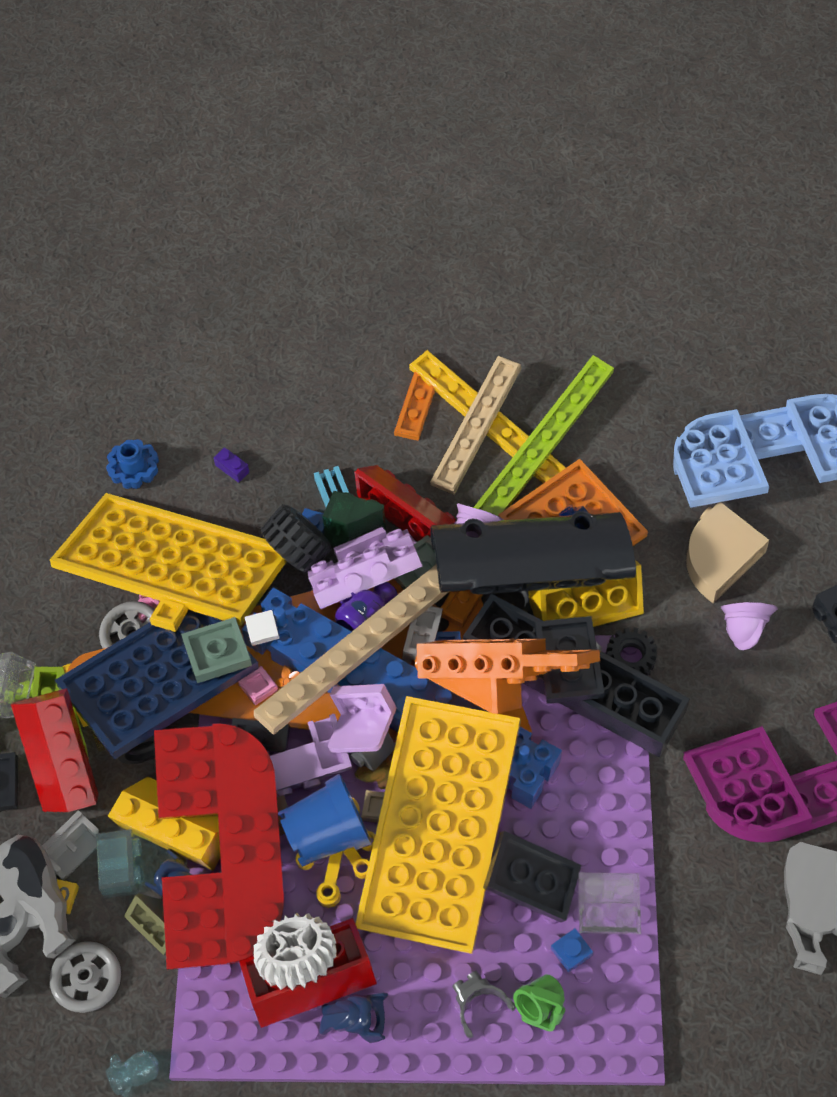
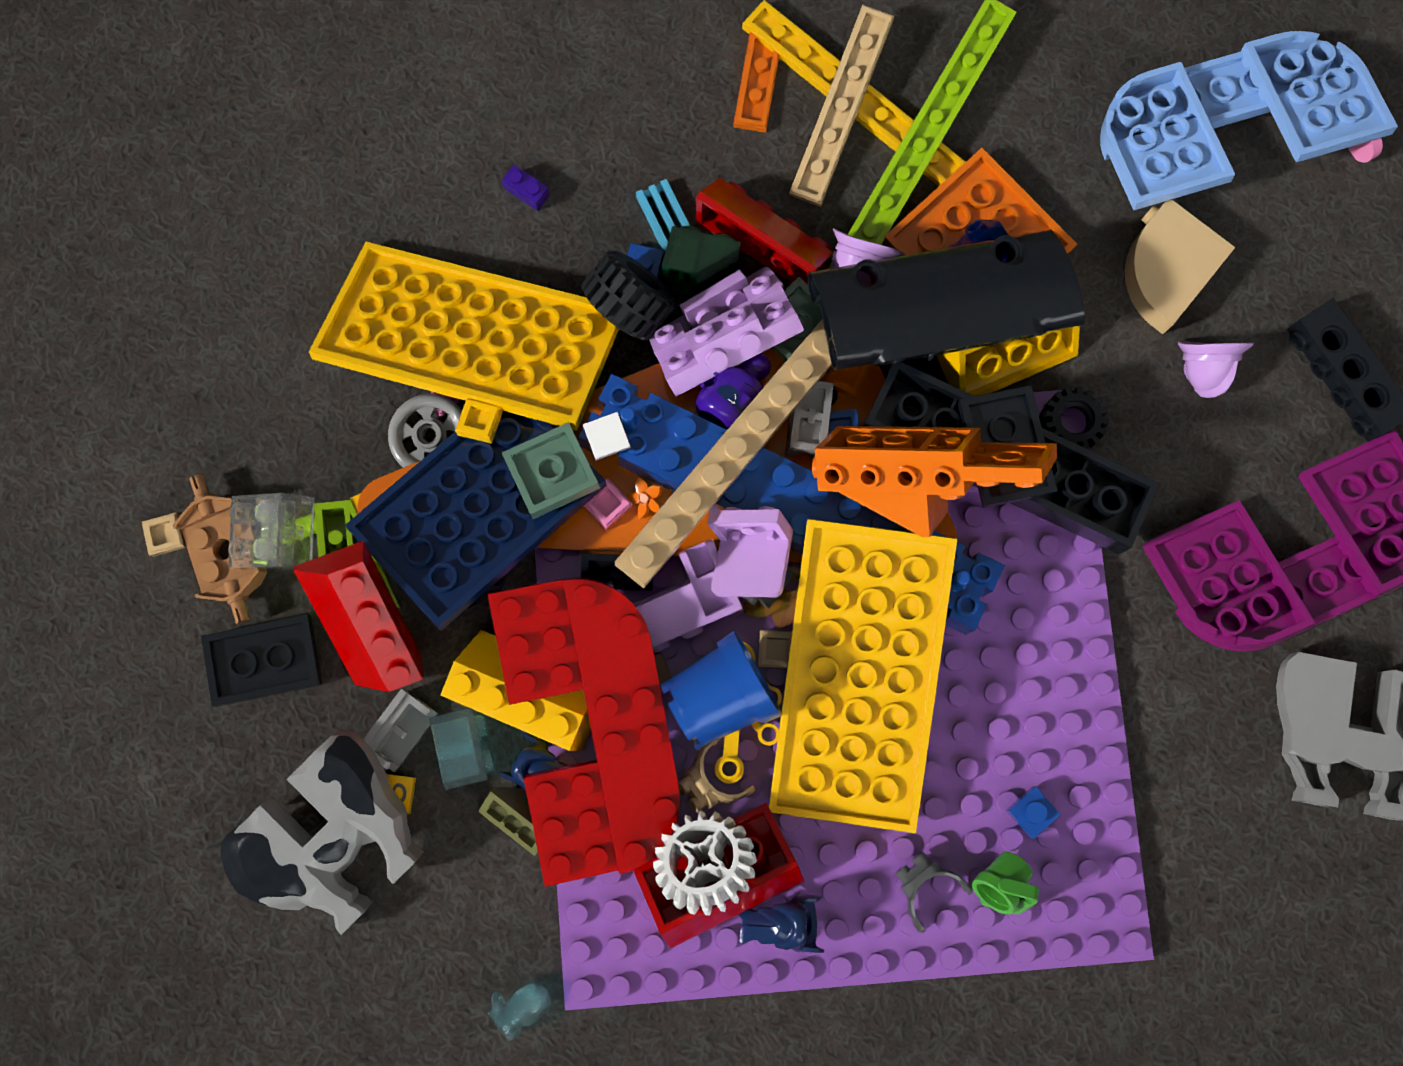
camera: 10 degrees left, 20 degrees up
(96, 999) = (460, 918): light grey plate -> none
(132, 464) = (394, 196): blue plant -> none
(301, 904) = (700, 790): none -> tan helmet
(532, 876) = (981, 731): black plate -> none
(609, 903) = (1077, 759): clear slope -> none

